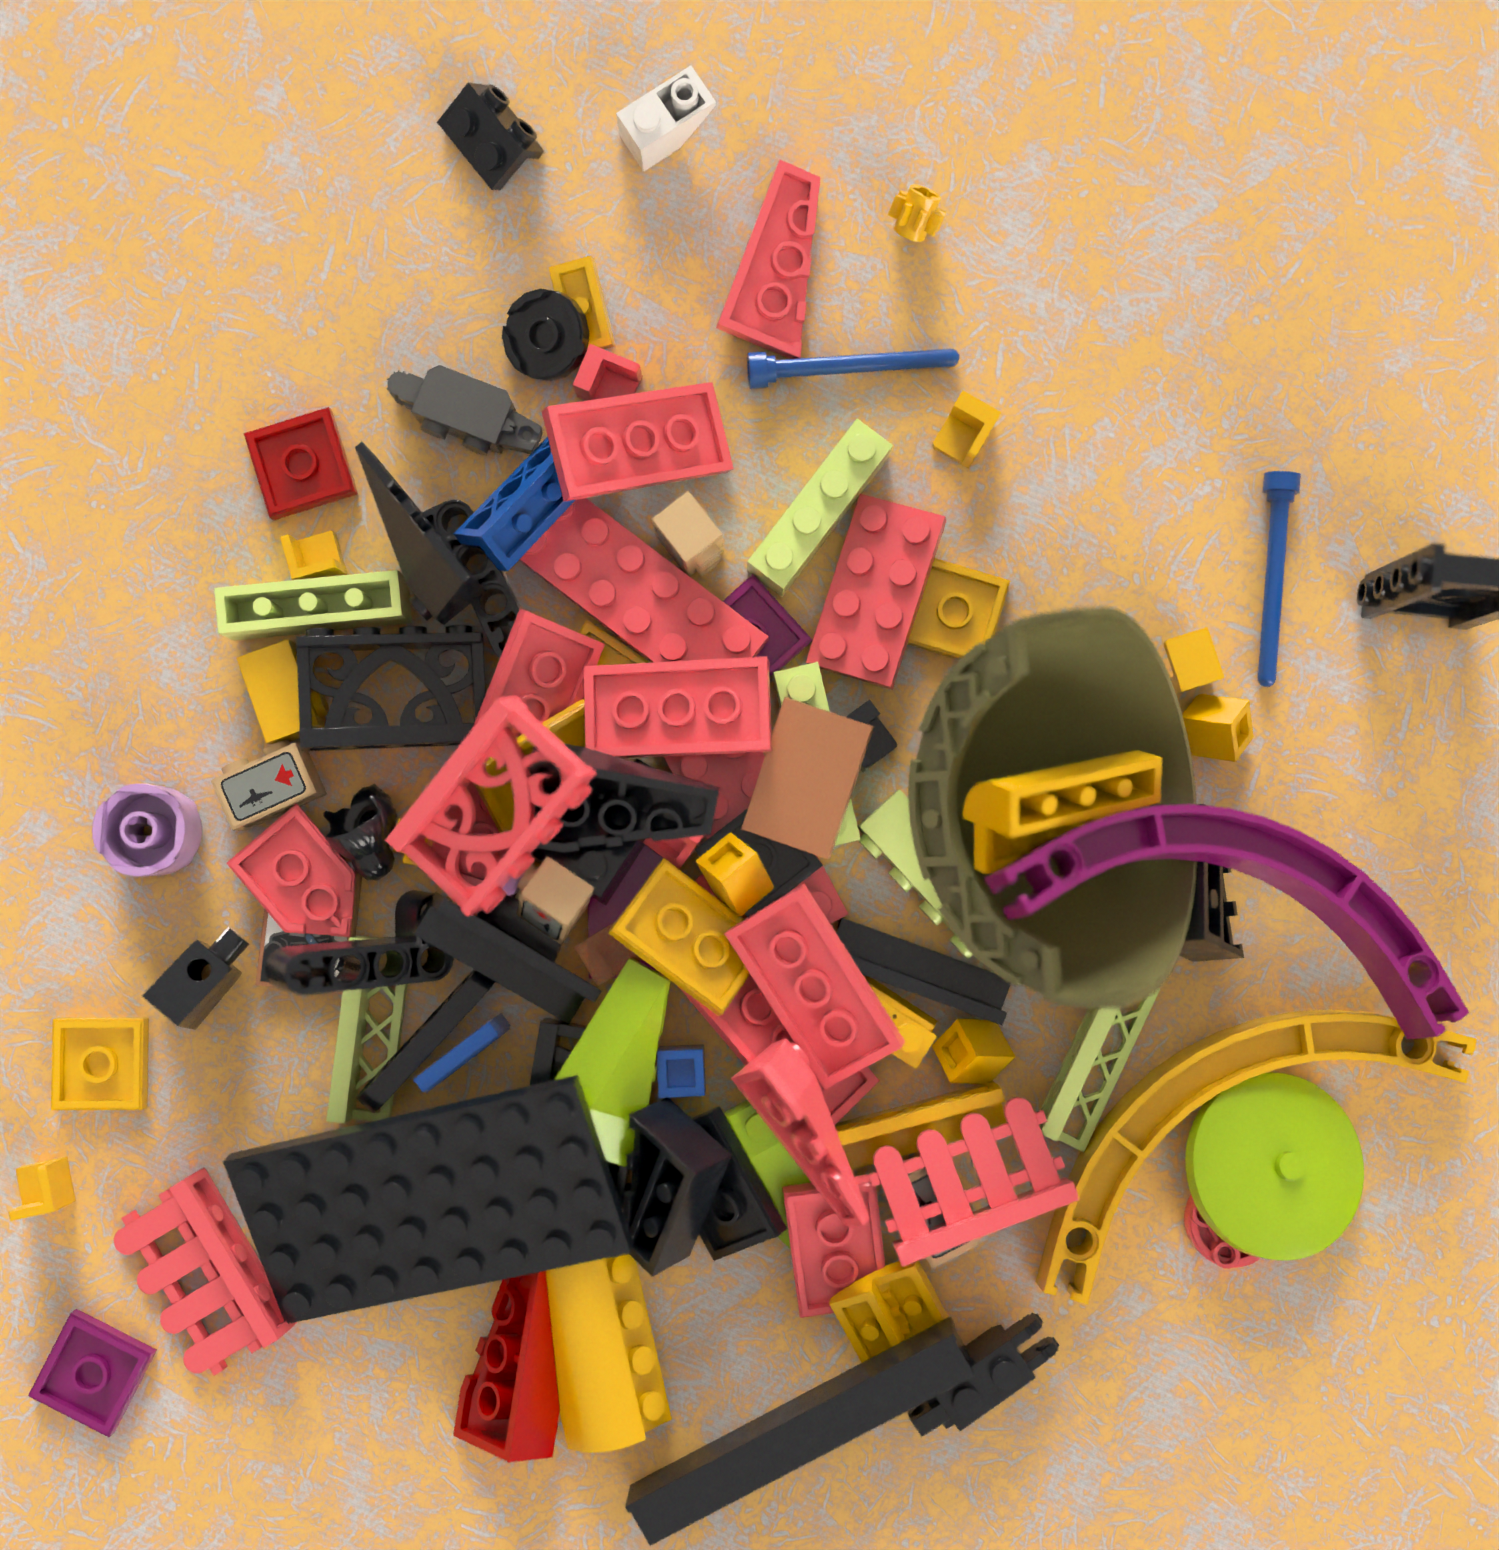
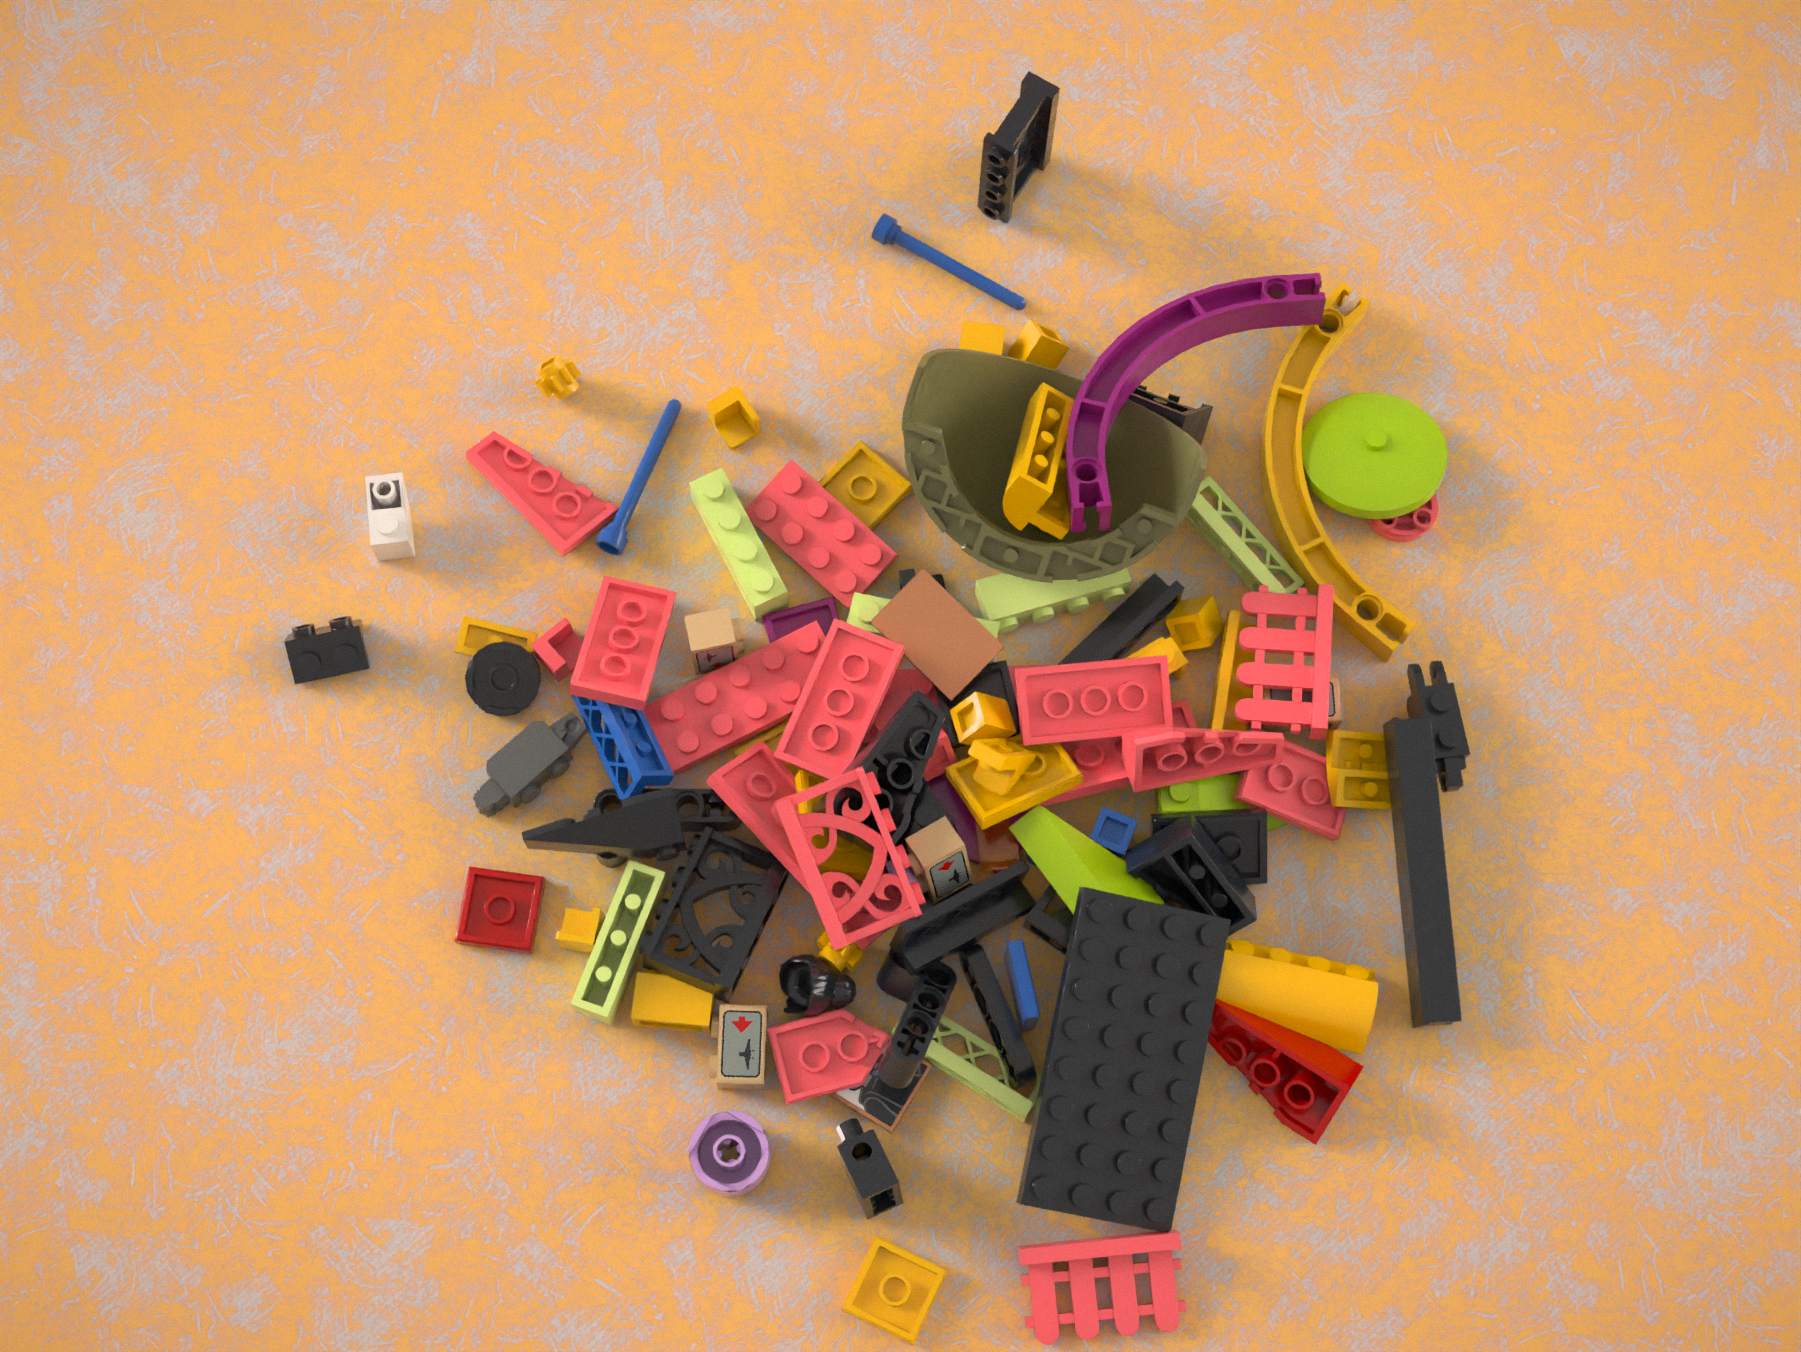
camera: 60 degrees left, 15 degrees down
(691, 918) = (1000, 763): none -> yellow slope

